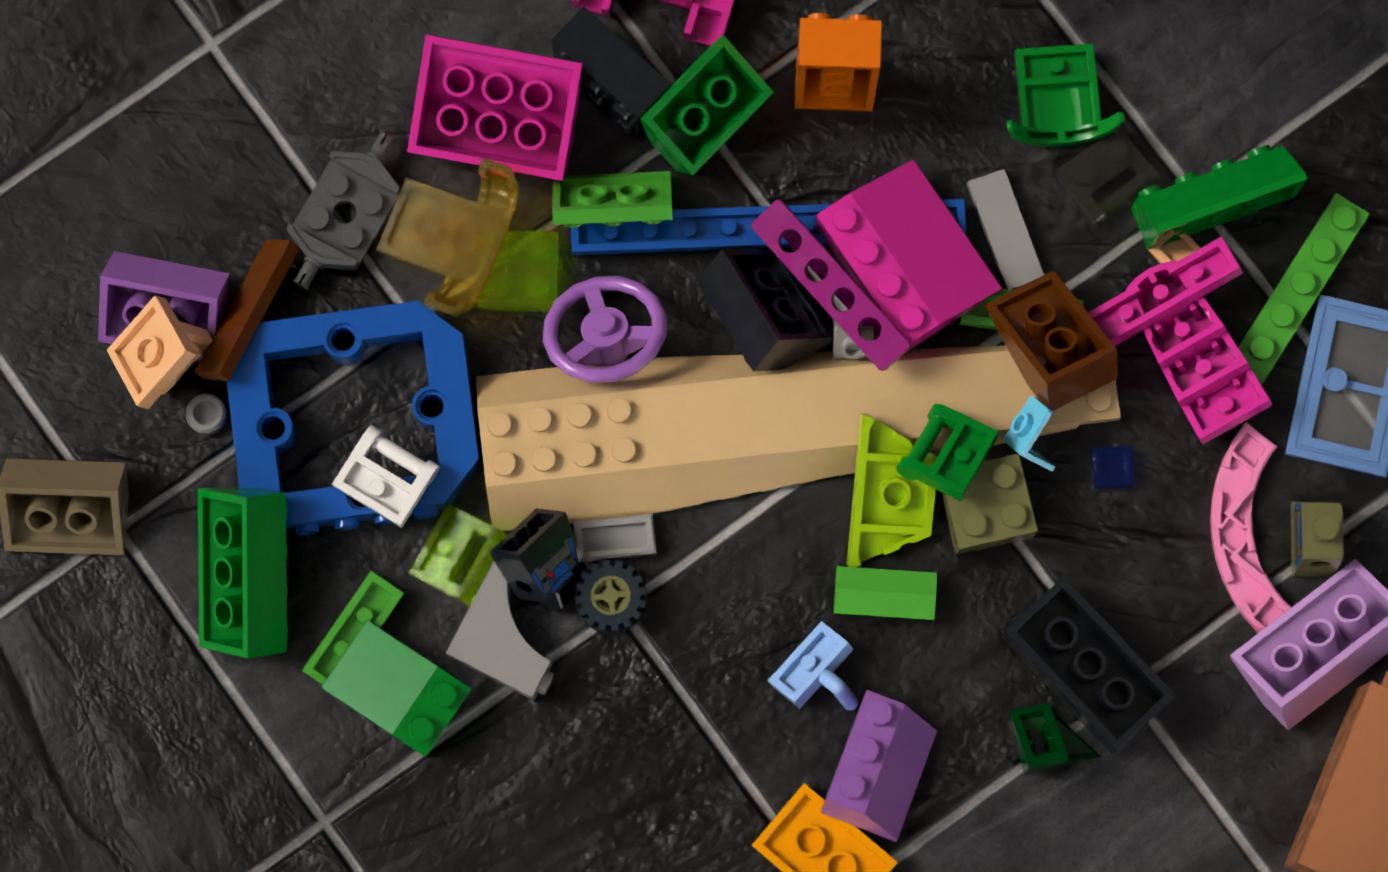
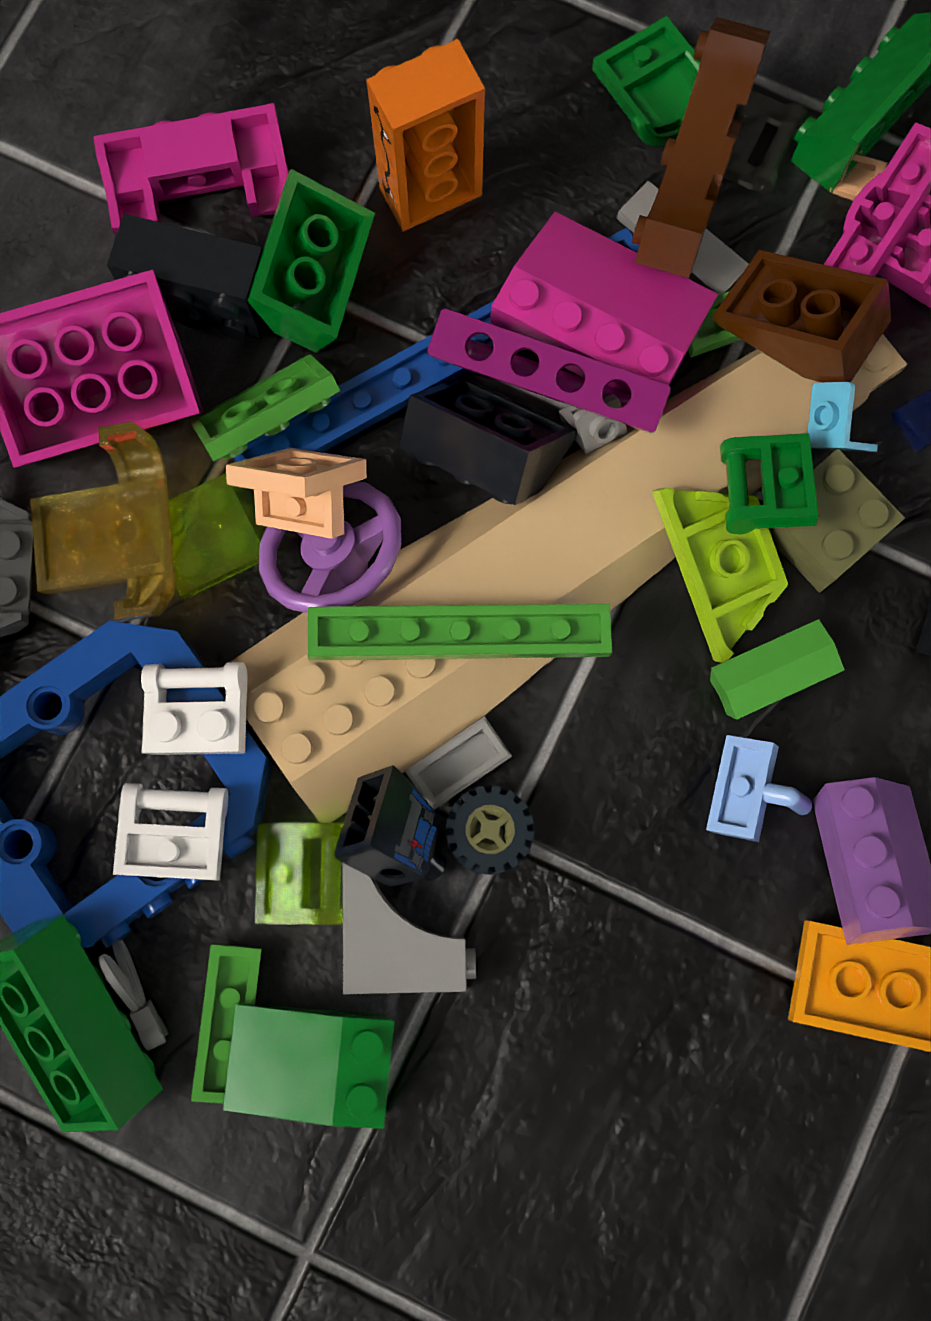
camera: 30 degrees left, 0 degrees up
(297, 593) = (127, 985): none -> light grey piece
(441, 410) = (194, 726): none -> white plate
(604, 276) = (298, 489): none -> light nougat bracket
(662, 442) = (459, 632): none -> bright green plate
(1045, 173) = (703, 148): none -> reddish brown brick

